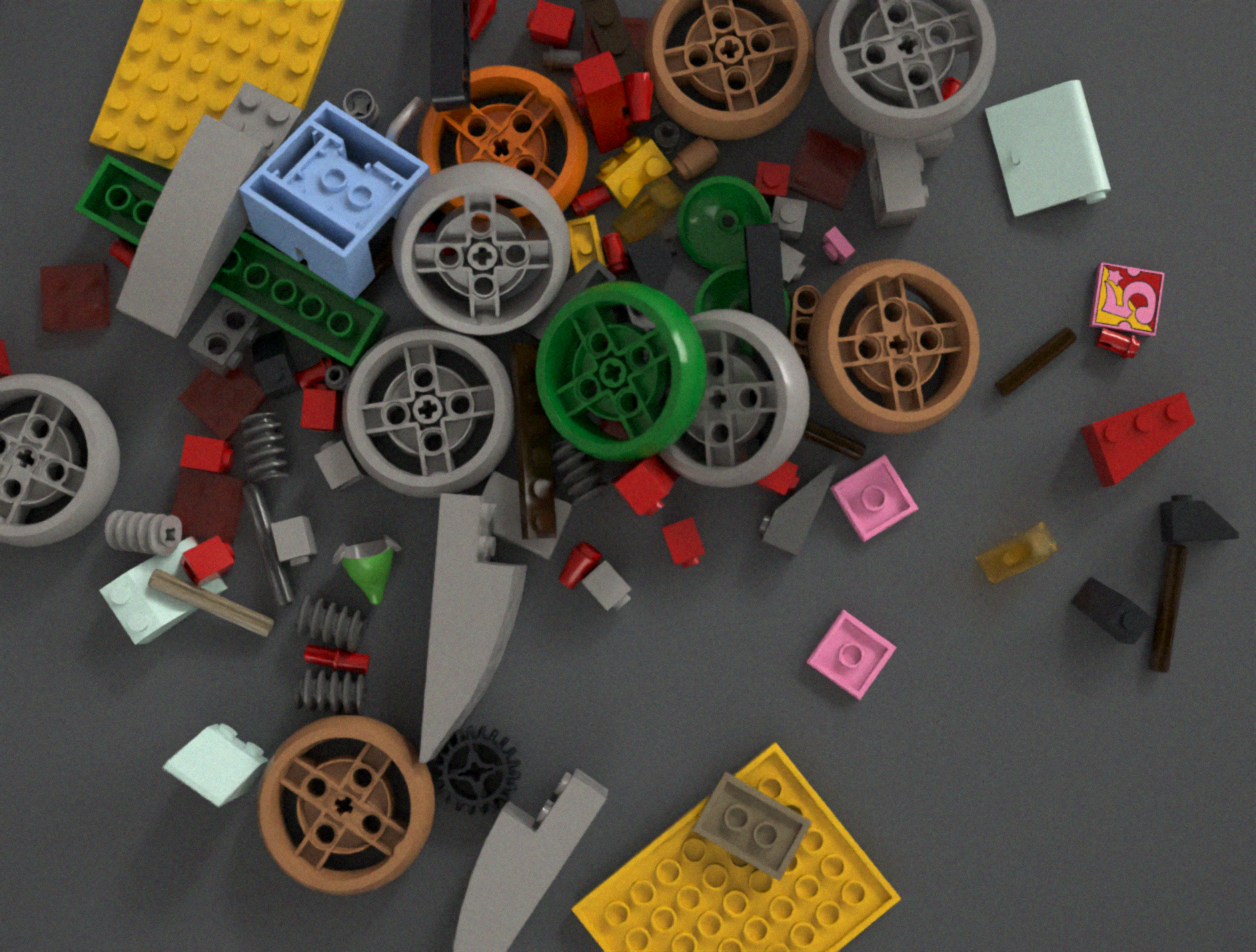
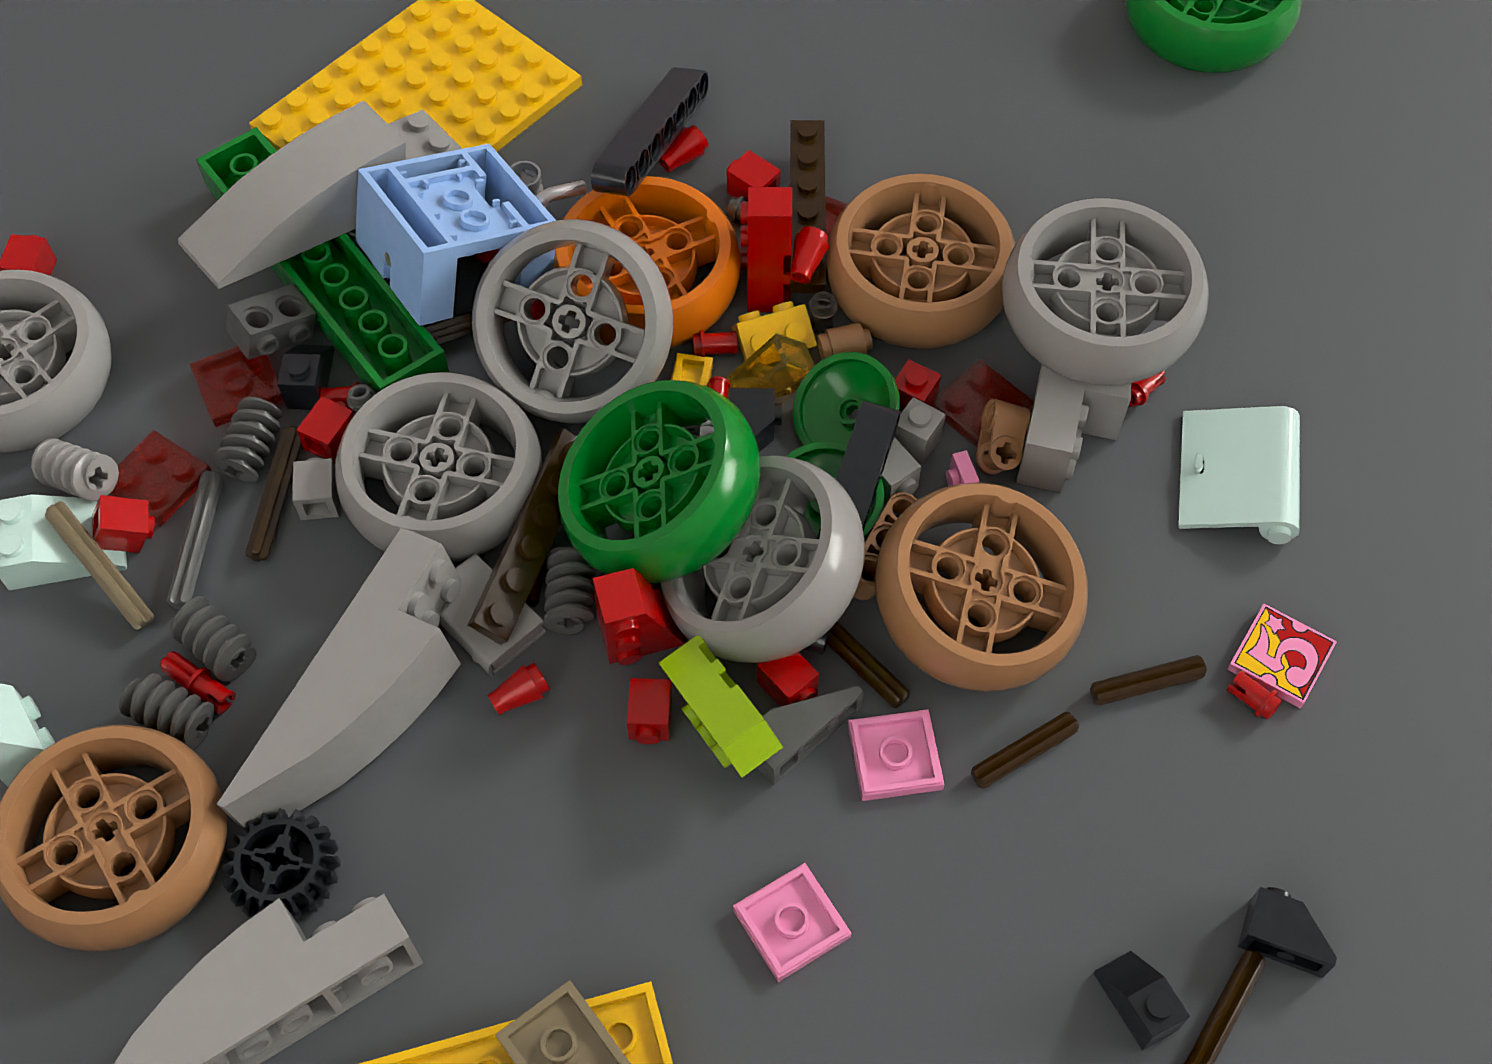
camera: 15 degrees right, 25 degrees down
(75, 297) = (146, 247): clear red plate -> none
(207, 454) = (186, 425): red brick -> none
(294, 540) = (224, 541): light grey brick -> none
(308, 480) = (274, 495): none -> dark brown axle
(369, 565) = (287, 598): bright green hat -> none
(607, 586) = (539, 723): light grey brick -> none
(743, 531) = (719, 708): none -> lime wedge
(856, 196) = (1001, 436): none -> medium nougat piece
(965, 456) = (1024, 749): none -> dark brown axle
(1018, 553) = (1046, 878): clear yellow slope -> none
(1134, 436) = (1242, 798): red wedge -> none

